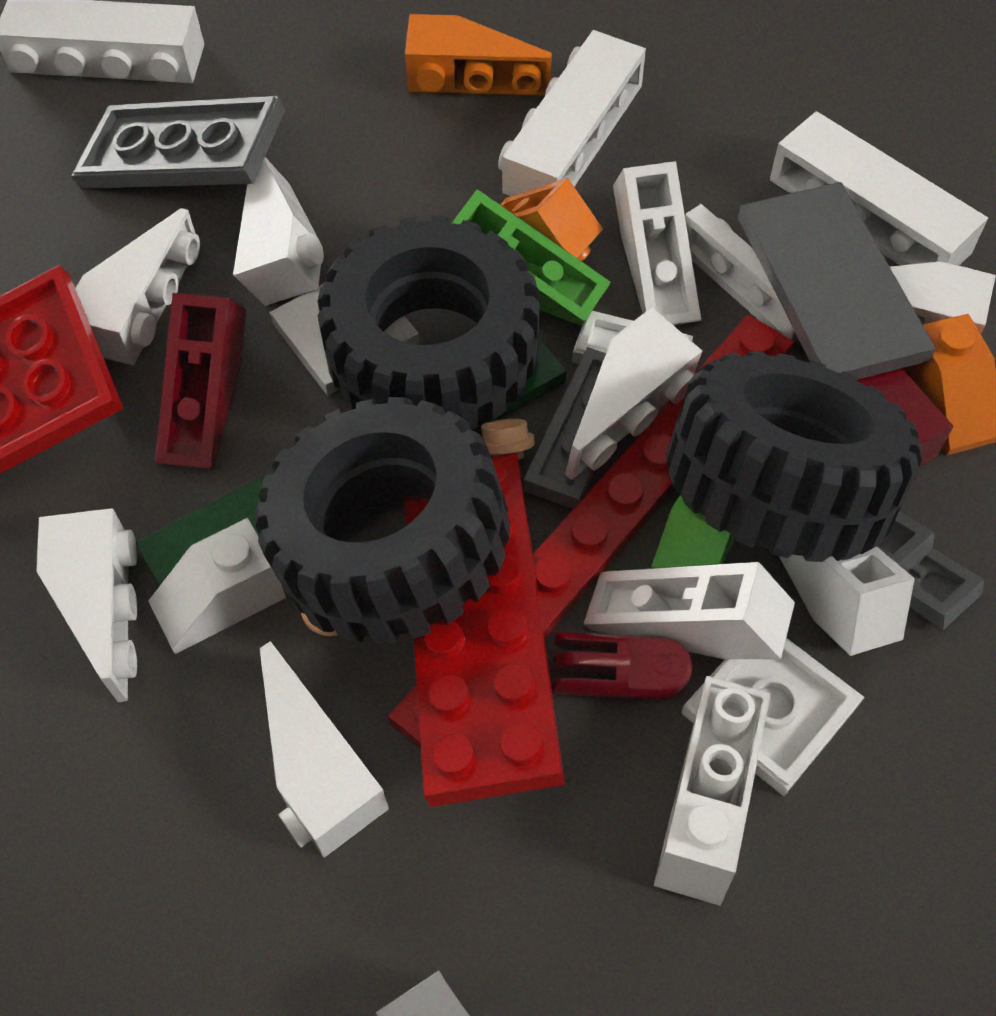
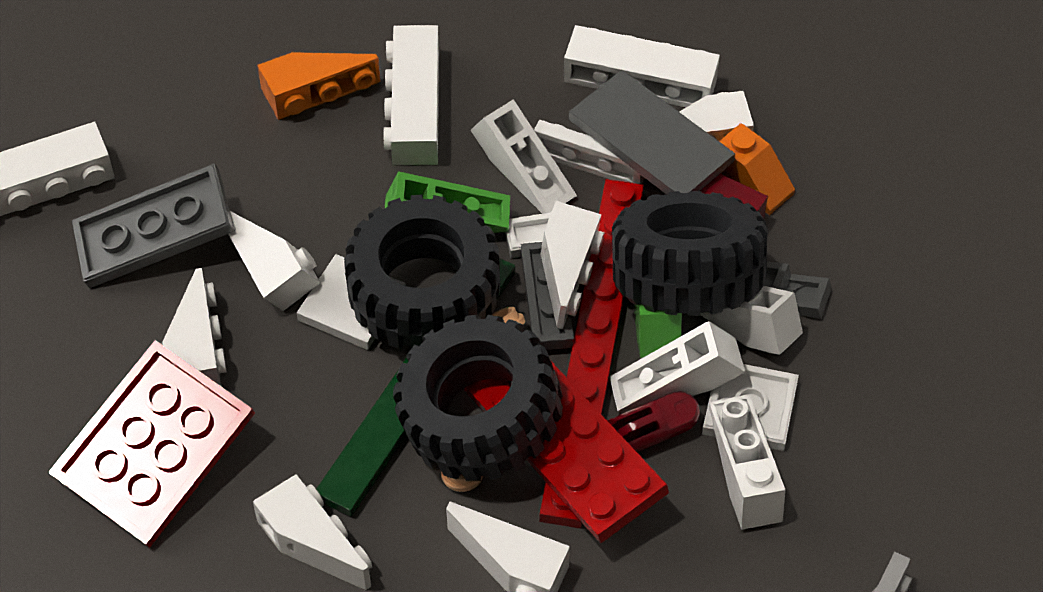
camera: 30 degrees left, 5 degrees down
(198, 378) = (284, 376): dark red slope -> none
(215, 587) = (386, 492): white slope -> none
(558, 214) = (448, 163): orange slope -> none

